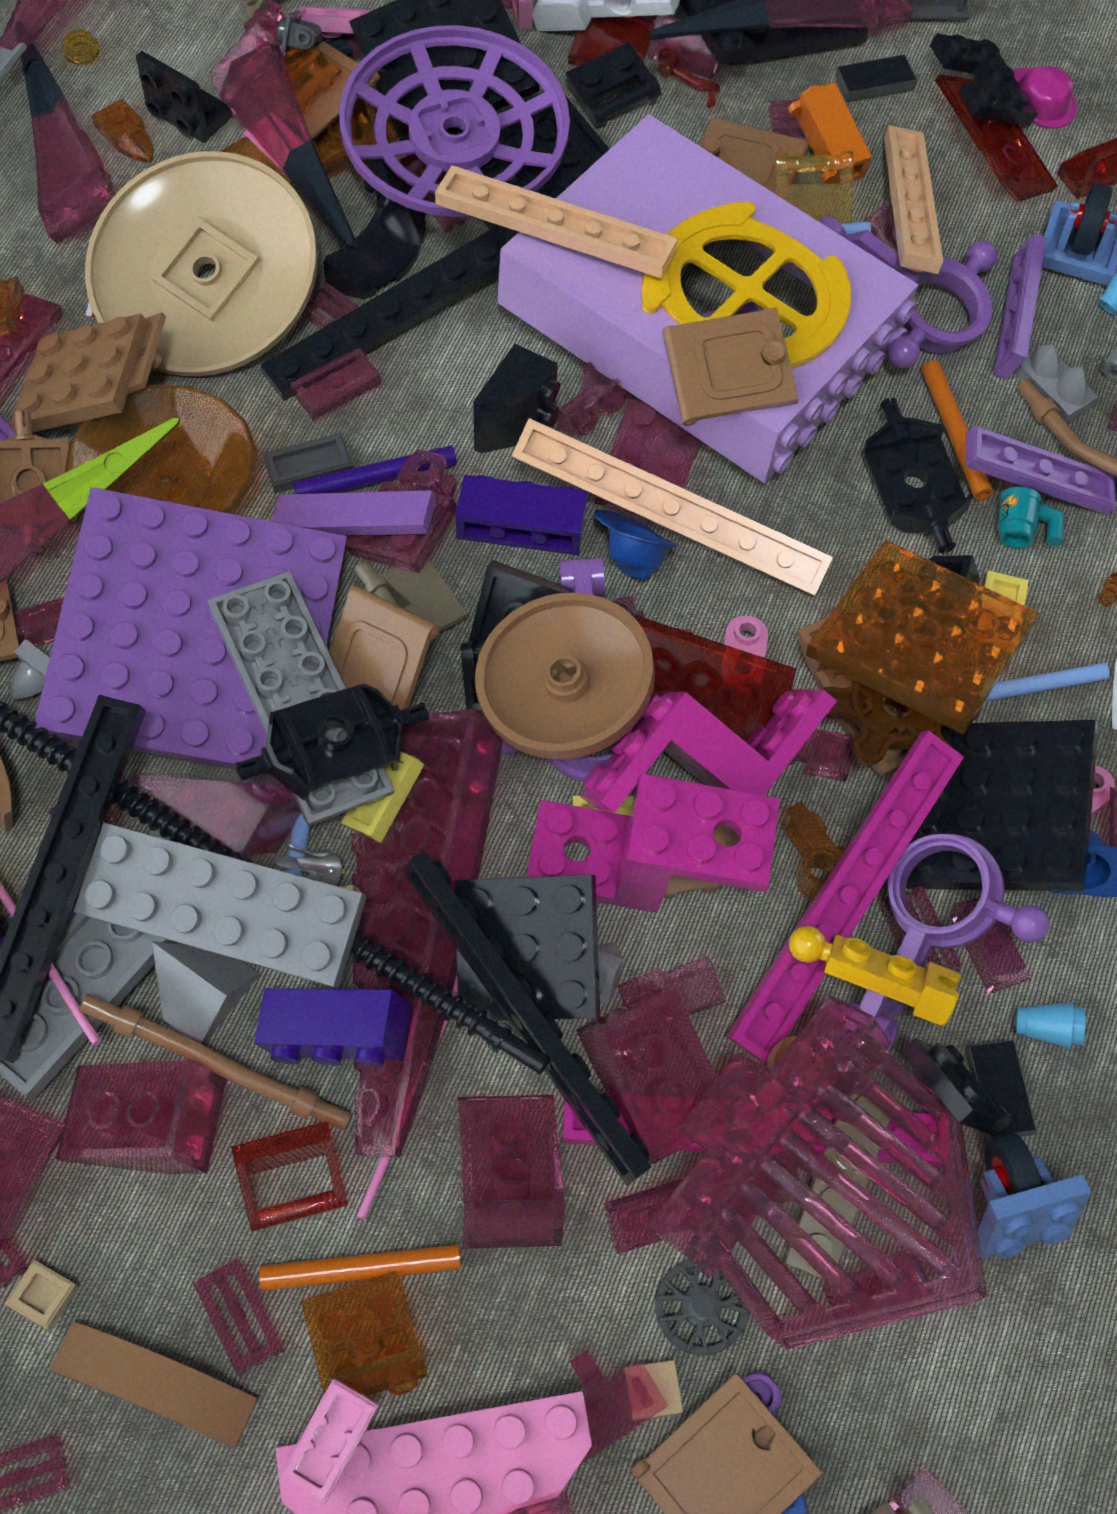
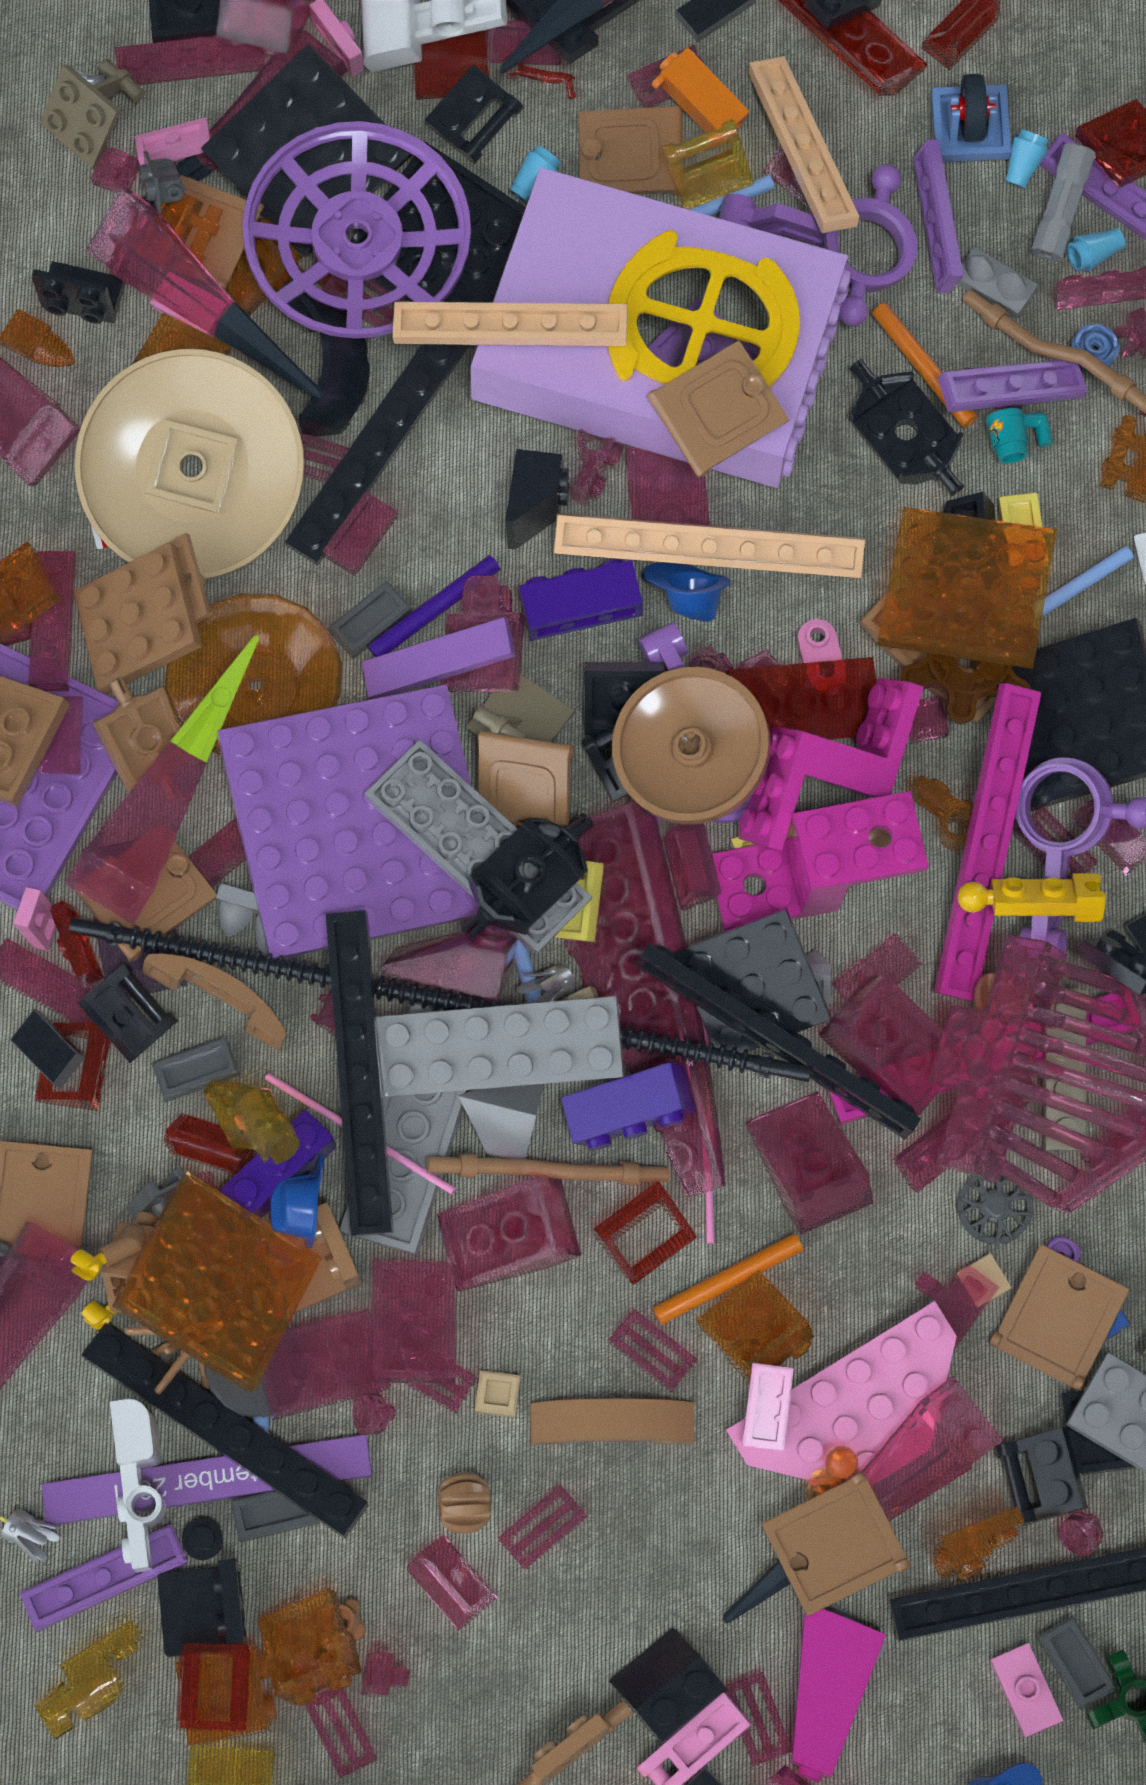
camera: 15 degrees left, 10 degrees up
(520, 804) = (691, 865): none -> clear pink slope

